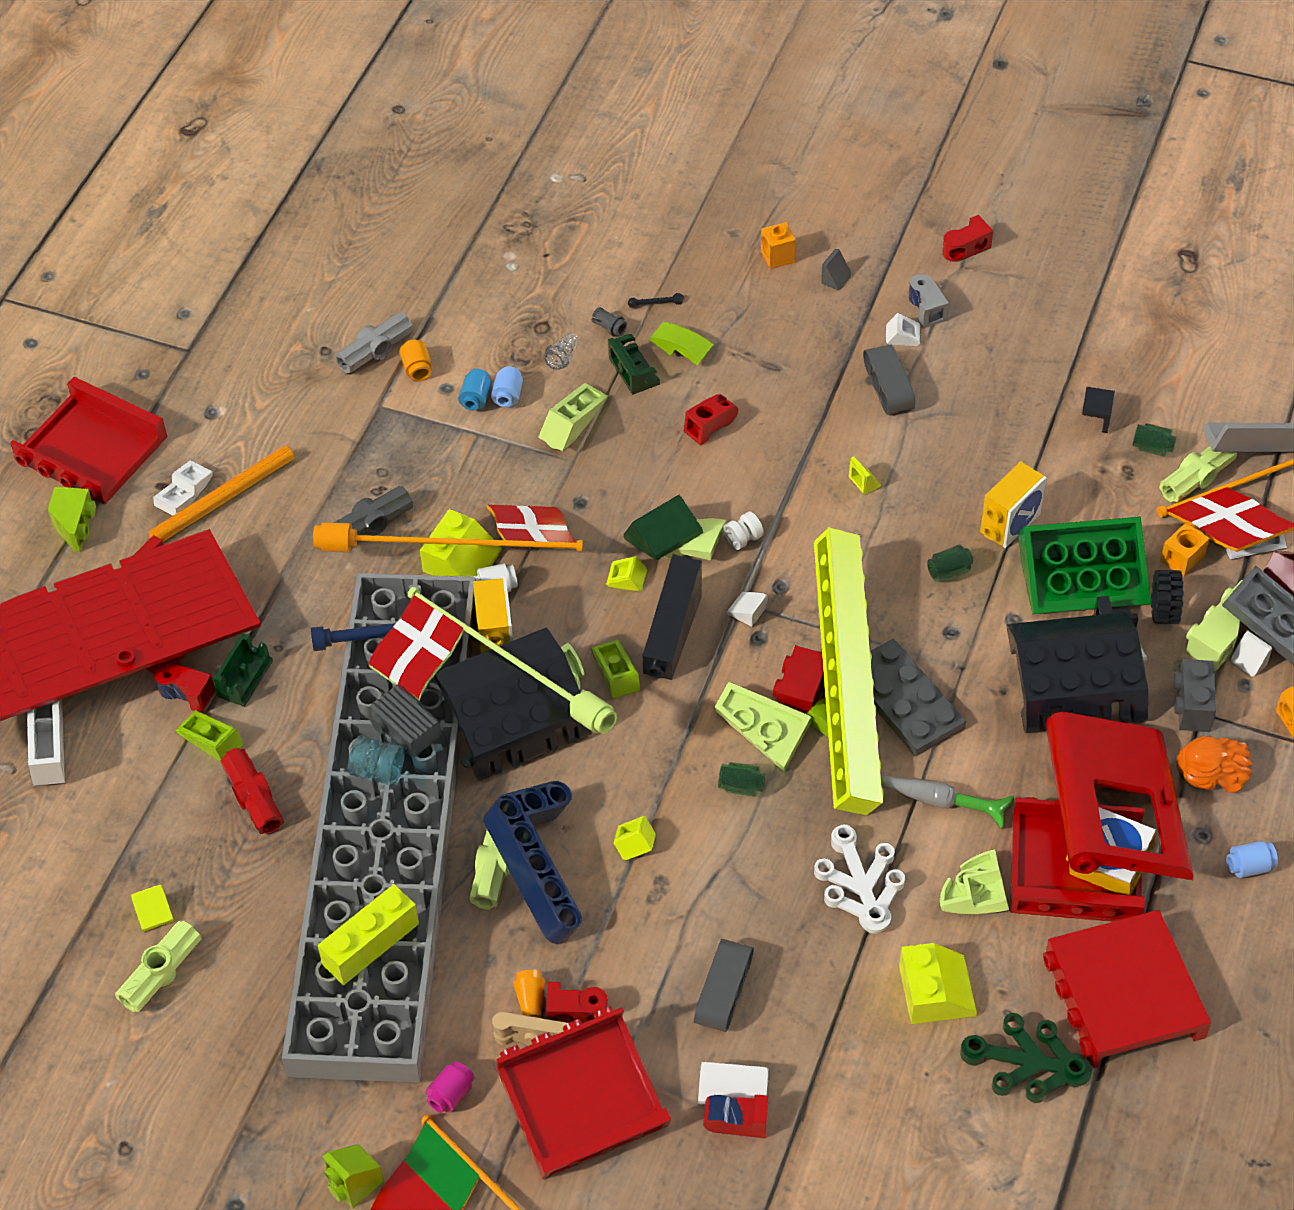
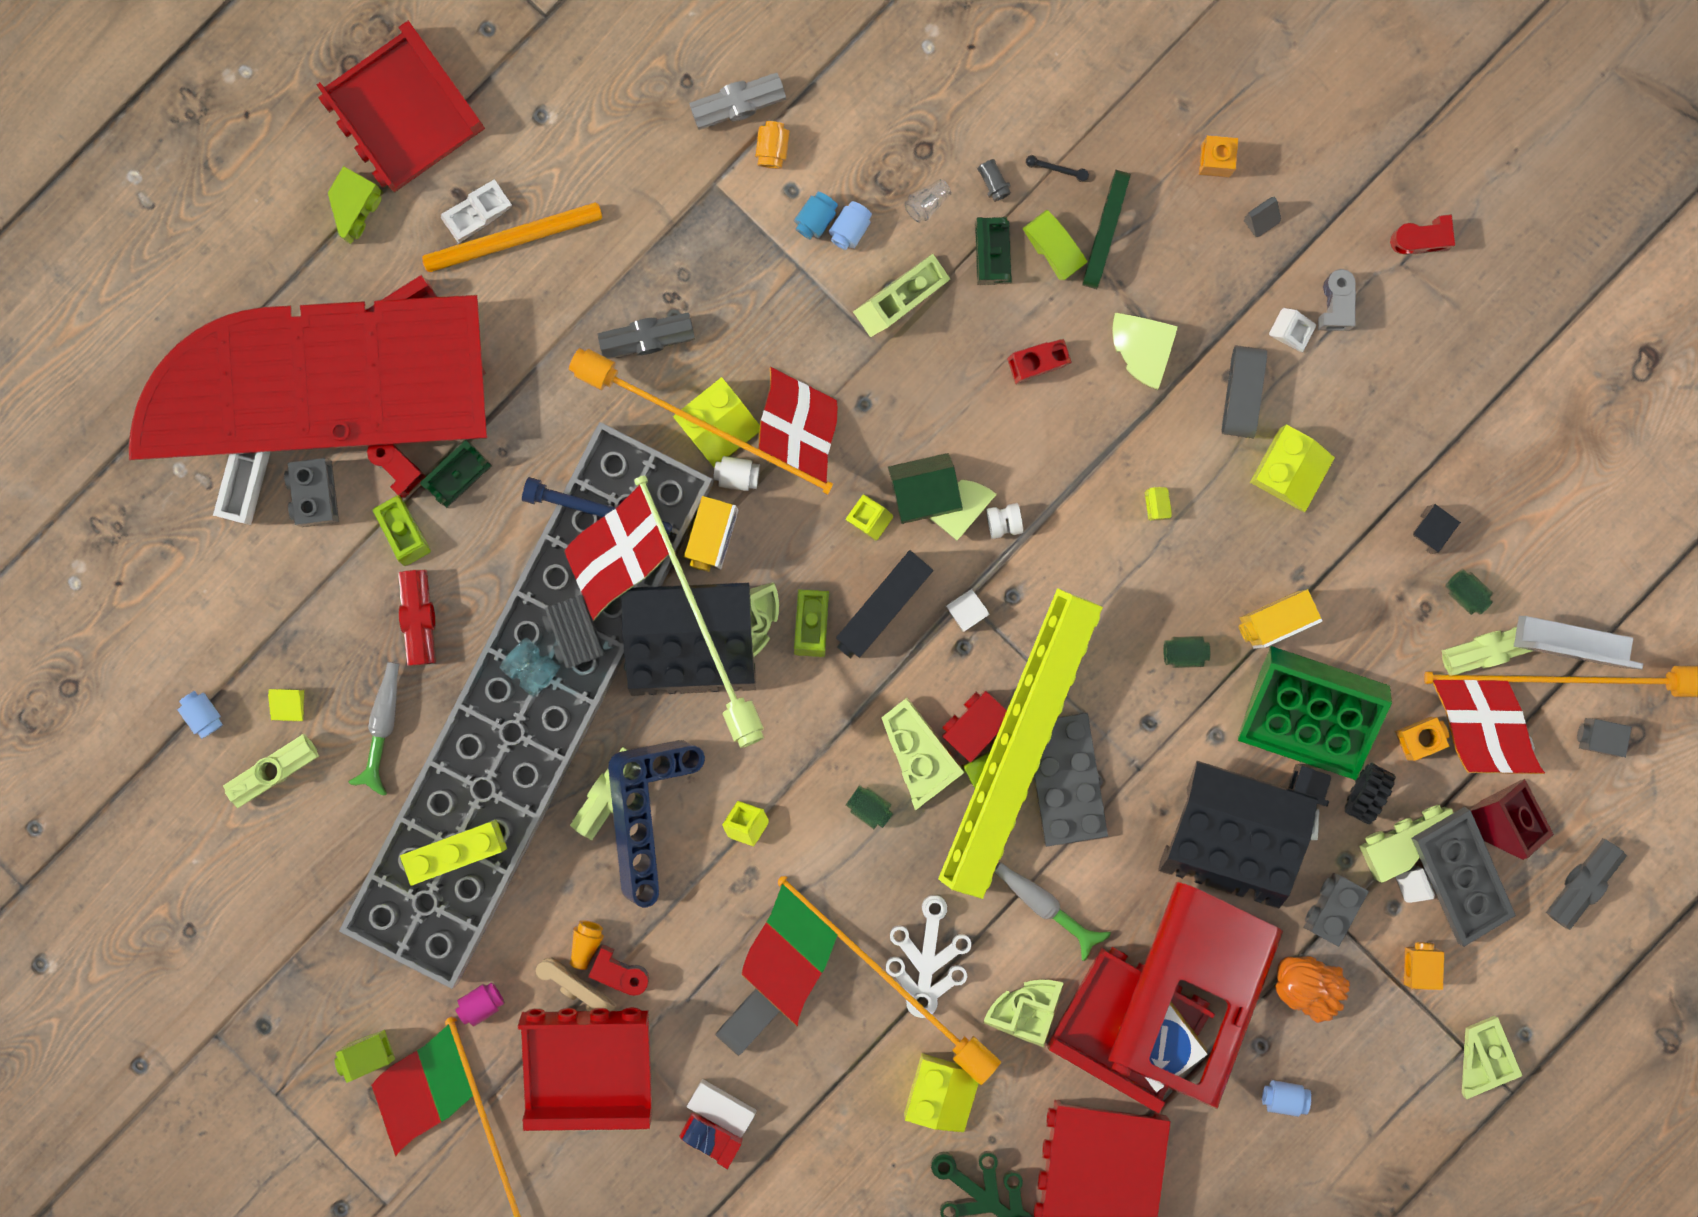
camera: 20 degrees right, 35 degrees up
(70, 947) = (199, 714): none -> light blue brick
(115, 732) = (312, 492): none -> dark grey brick
(252, 892) = (380, 726): none -> light grey piece
(716, 319) = (1106, 229): none -> dark green beam
(733, 919) = (794, 953): none -> flag
(791, 380) = (1143, 346): none -> yellowish green brick
(959, 412) = (1293, 468): none -> neon yellow slope

